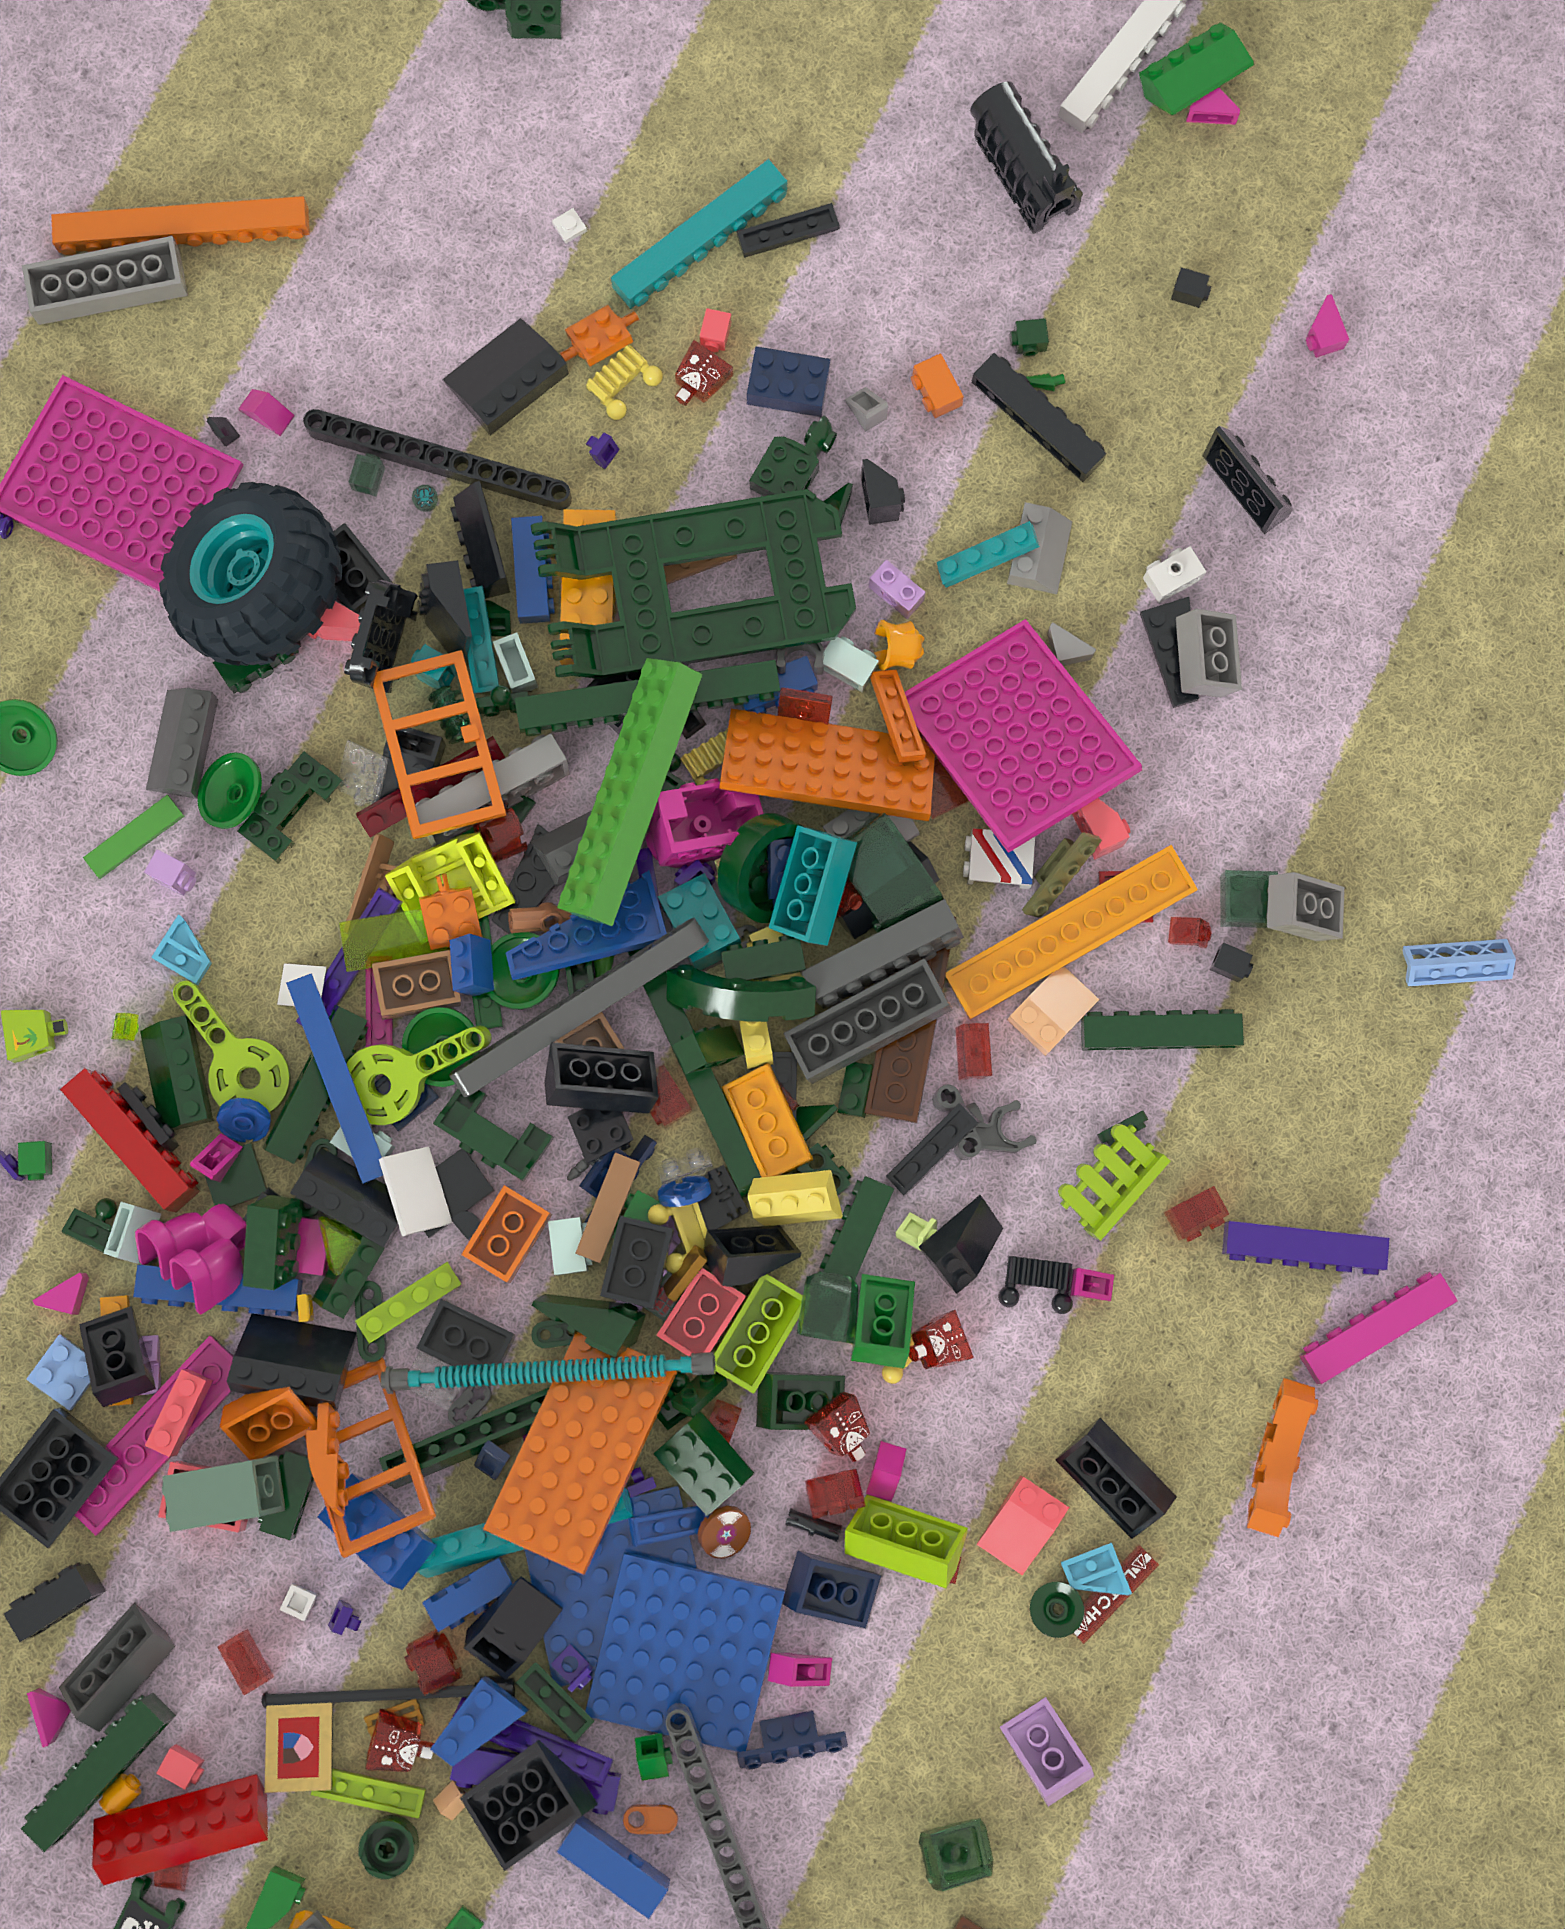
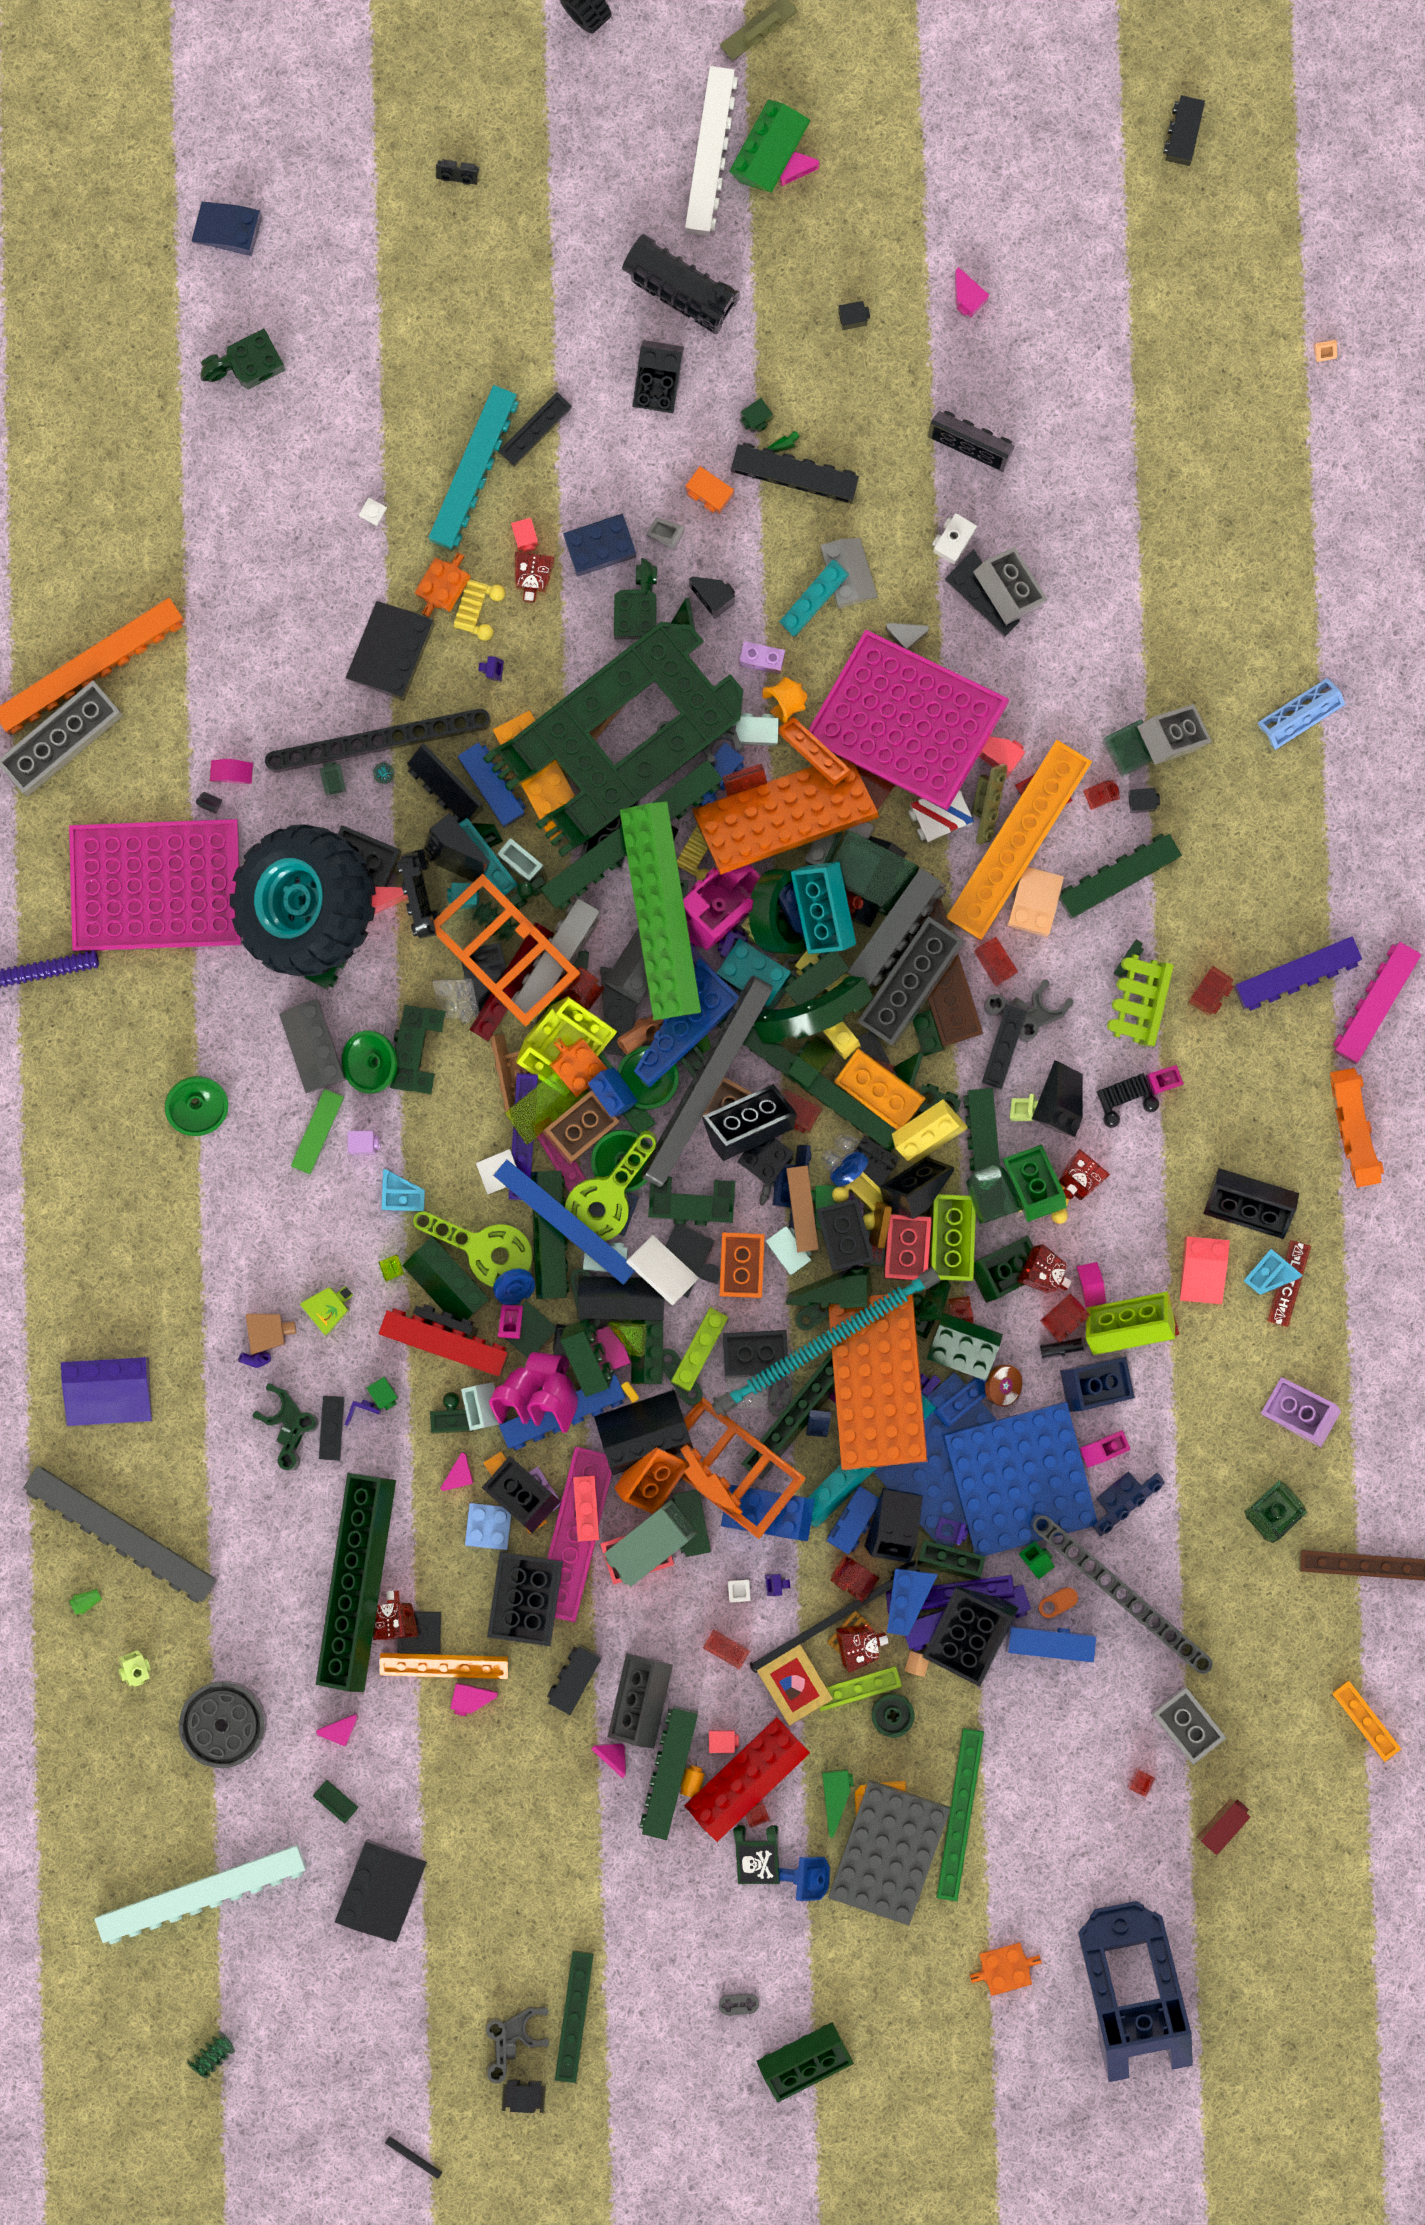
camera: 25 degrees left, 5 degrees up
(947, 243) = (657, 376): none -> black slope
(1043, 1612) = (1249, 1321): dark green dish -> none

